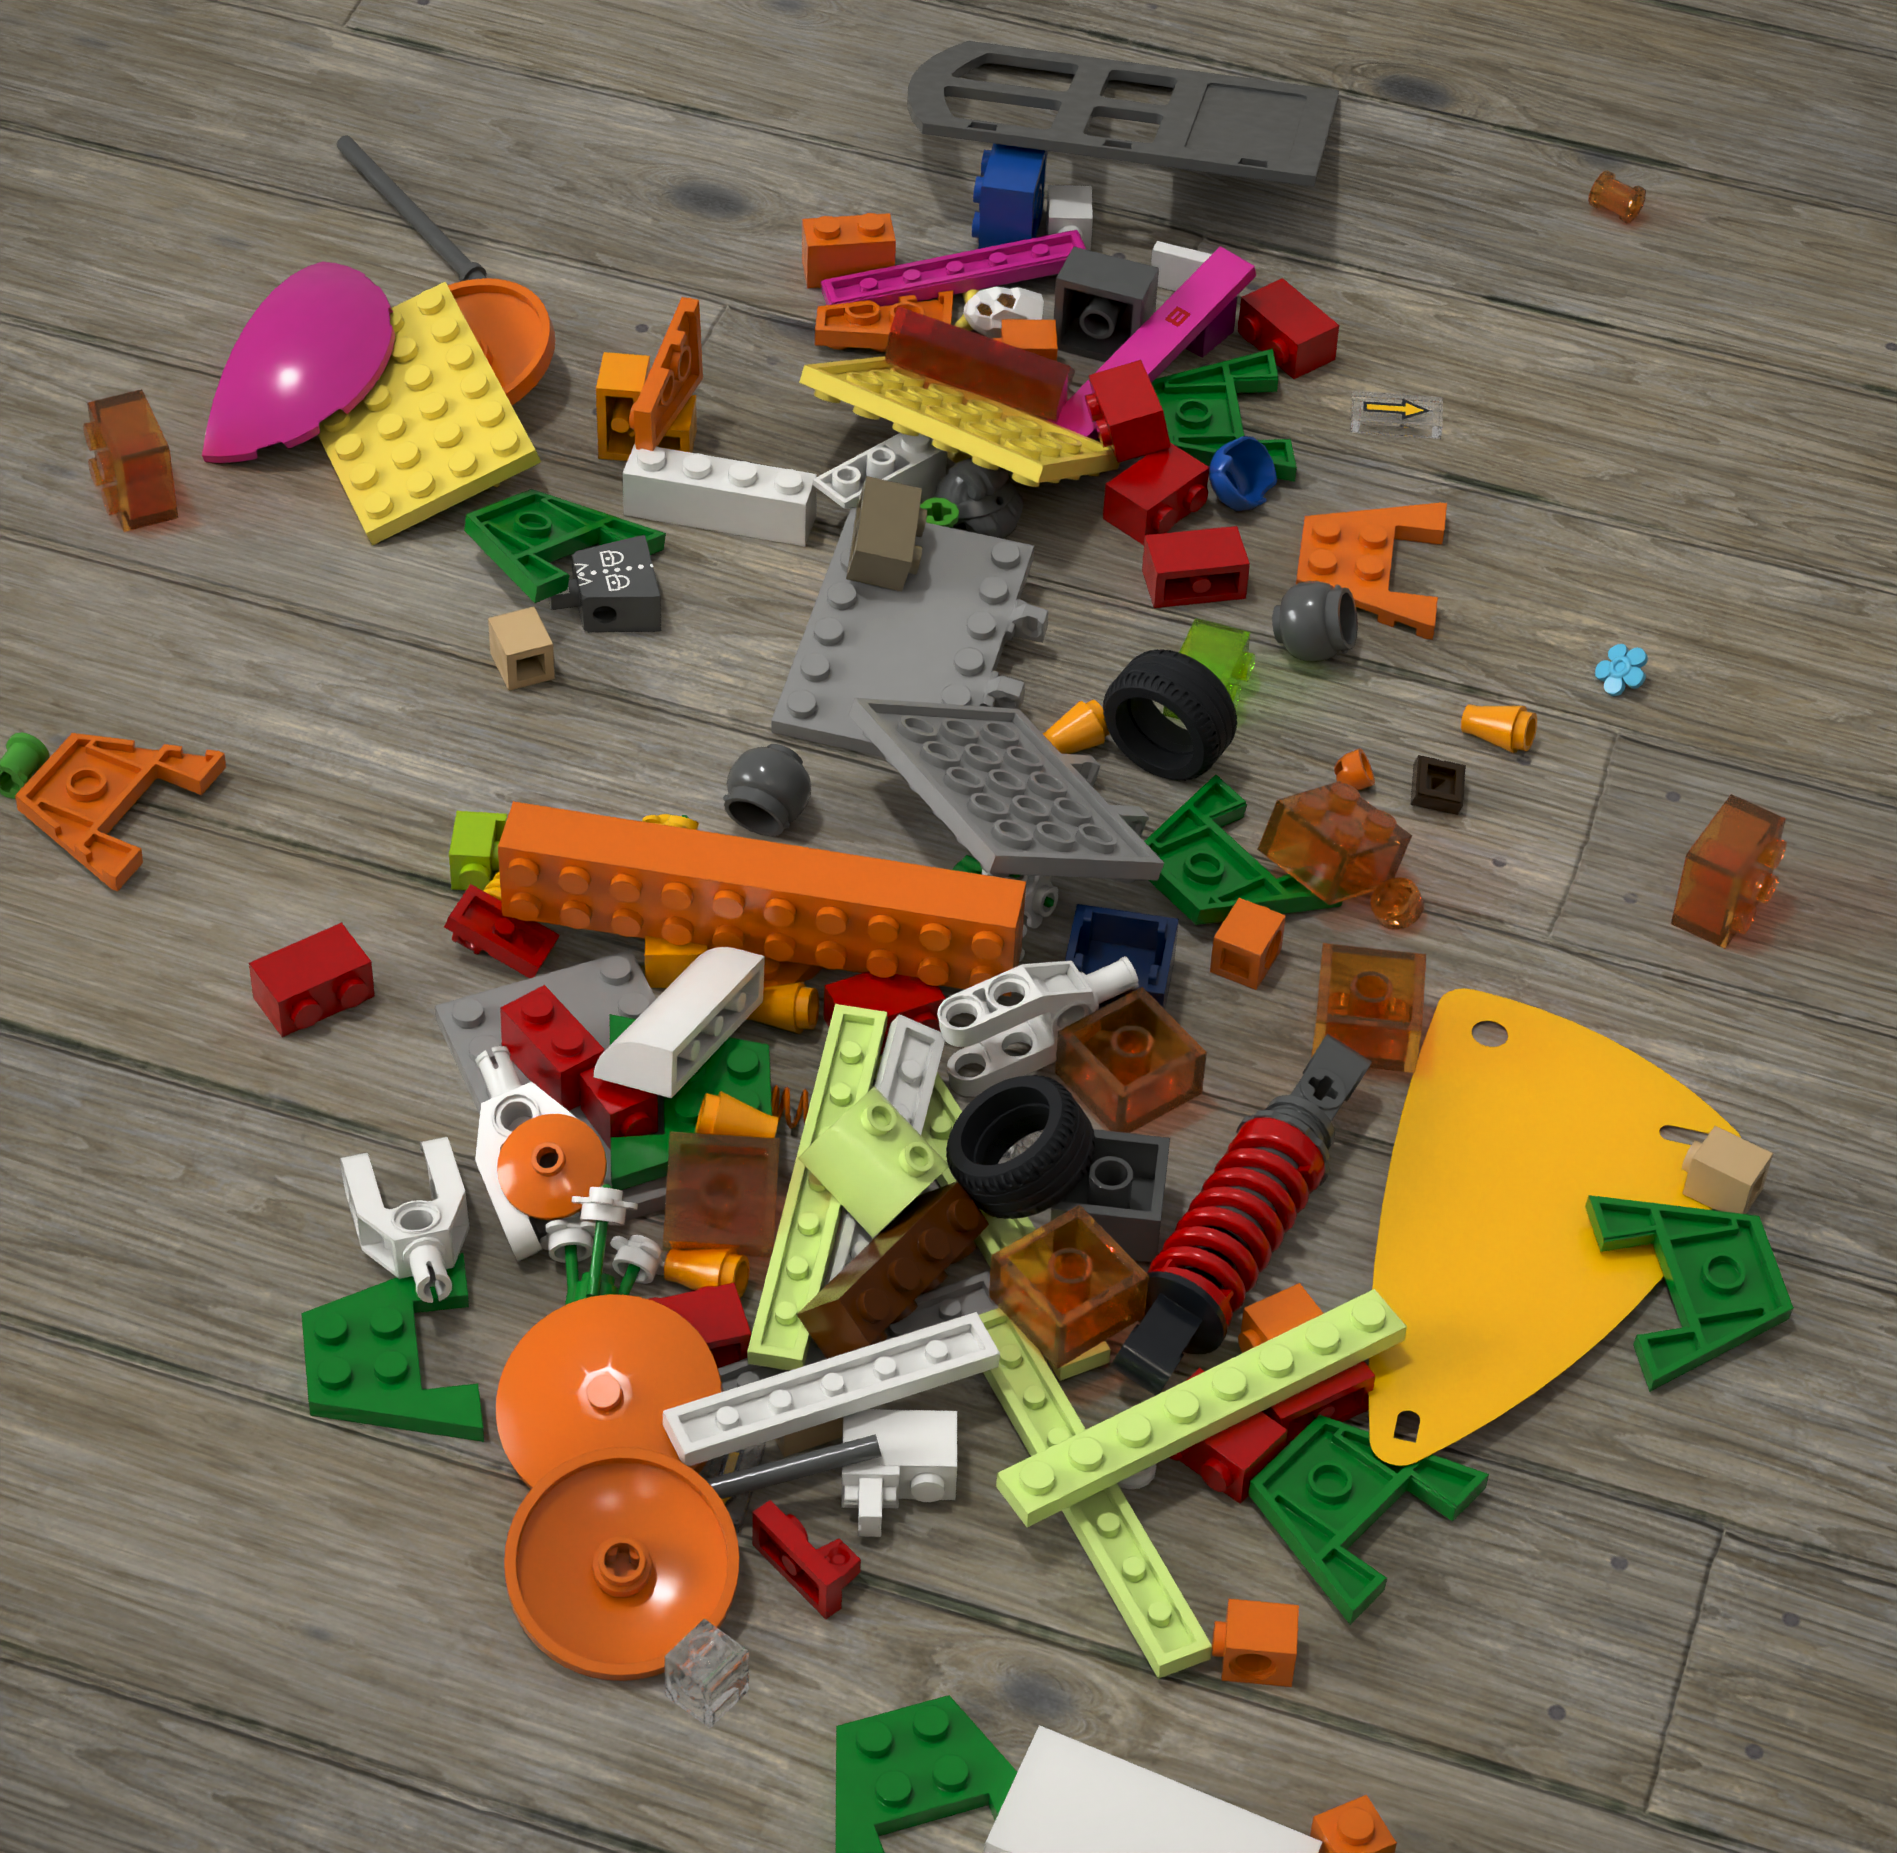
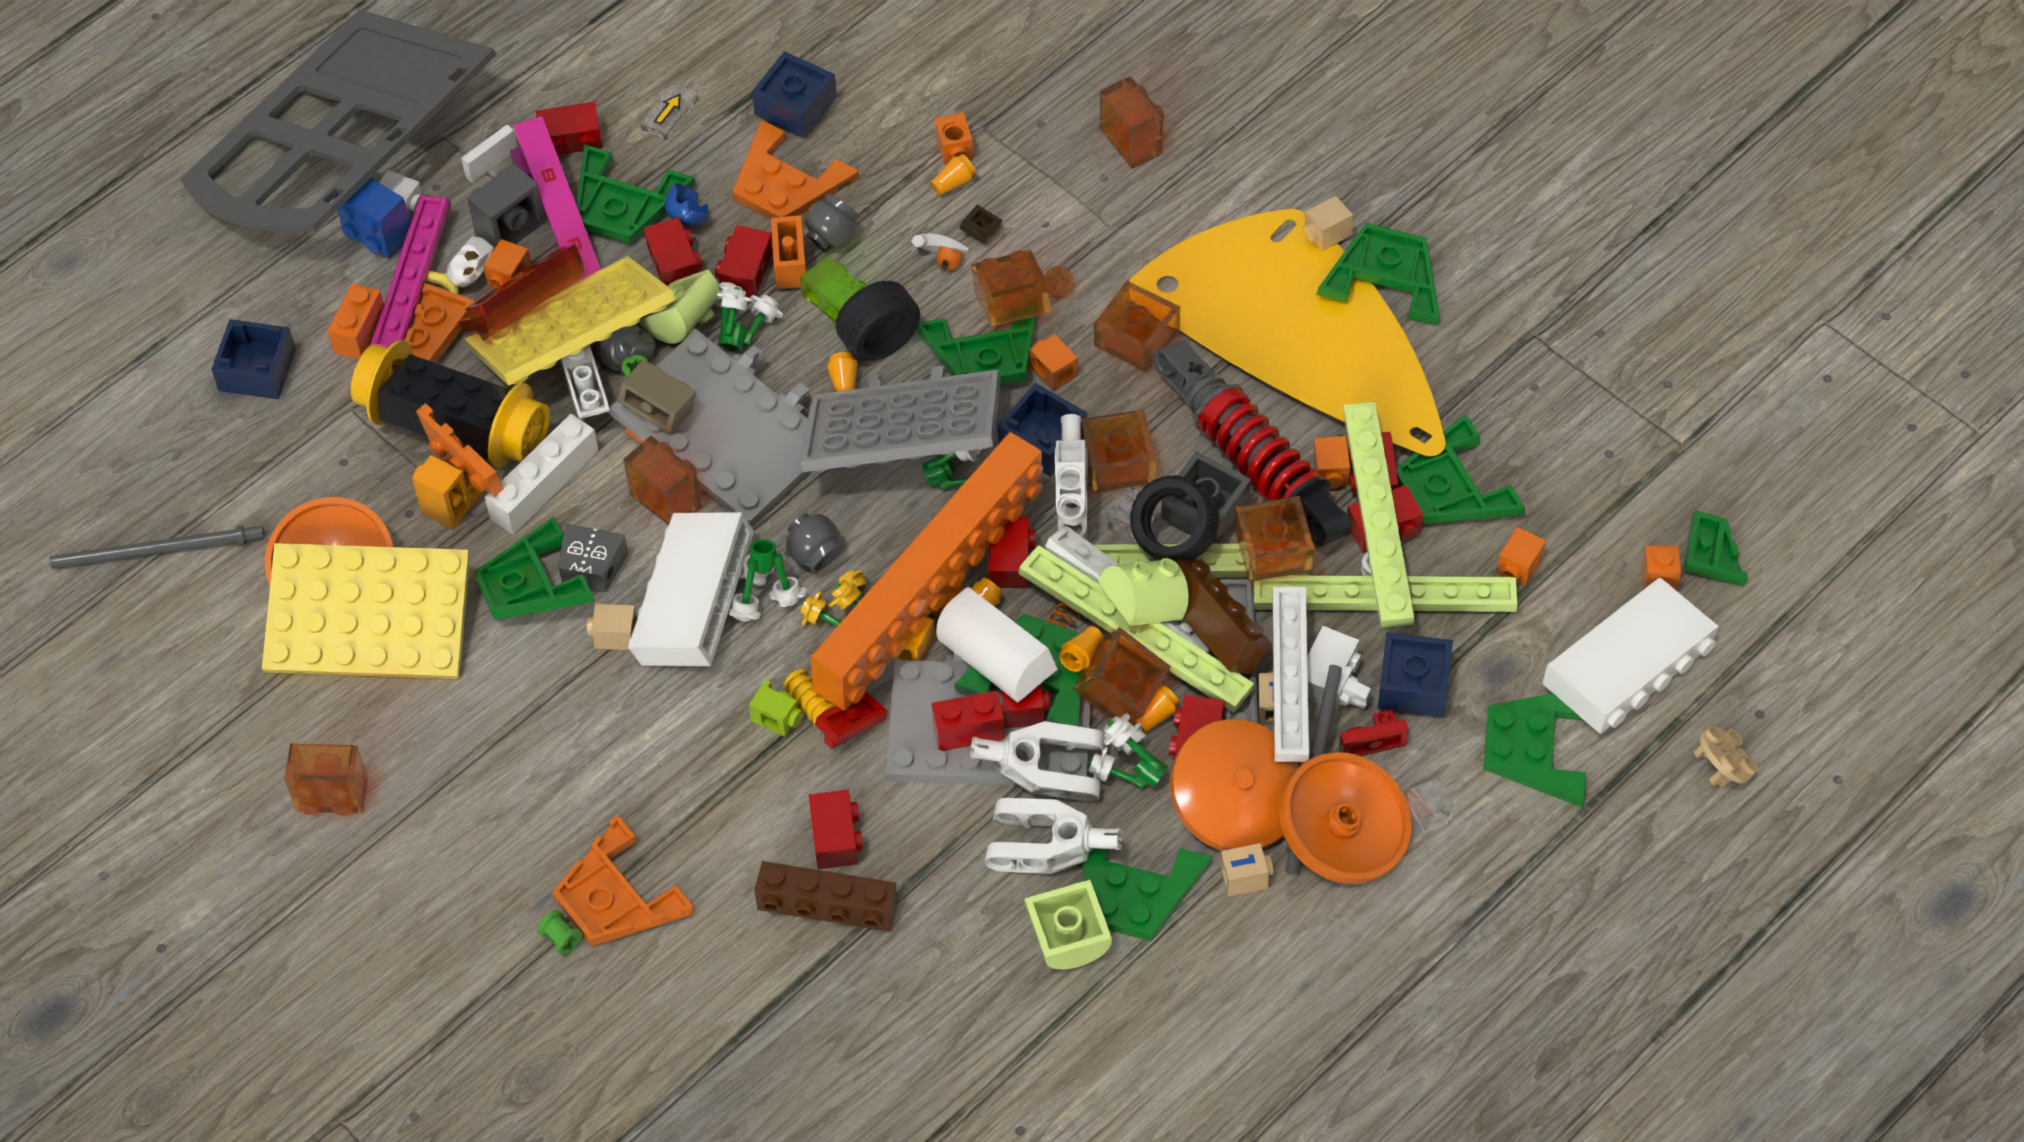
camera: 60 degrees left, 10 degrees up
(195, 1008) = (826, 896): none -> reddish brown brick
(257, 1280) = (1069, 925): none -> yellowish green brick
(299, 360) = (292, 647): dark pink brick -> none
(475, 1474) = (1245, 869): none -> tan brick
(549, 1191) = (1057, 758): orange dish -> none
(616, 693) = (691, 589): none -> white brick
(696, 755) = (755, 570): none -> plant
(733, 187) = (253, 359): none -> dark blue container
(755, 347) = (483, 415): none -> brick
(767, 602) = (662, 480): none -> clear orange brick
(940, 1566) = (1415, 674): none -> dark blue container
(1067, 528) = (692, 305): none -> yellowish green brick
(1101, 559) = (733, 333): none -> plant
(1127, 411) = (615, 234): red brick -> none
(1235, 591) = (788, 251): none -> orange brick
(1374, 747) = (932, 242): none -> white bar
(1504, 510) = (794, 94): none -> dark blue container
(1564, 701) = (953, 136): none -> orange brick
(1622, 669) = (941, 100): medium azure plant -> none

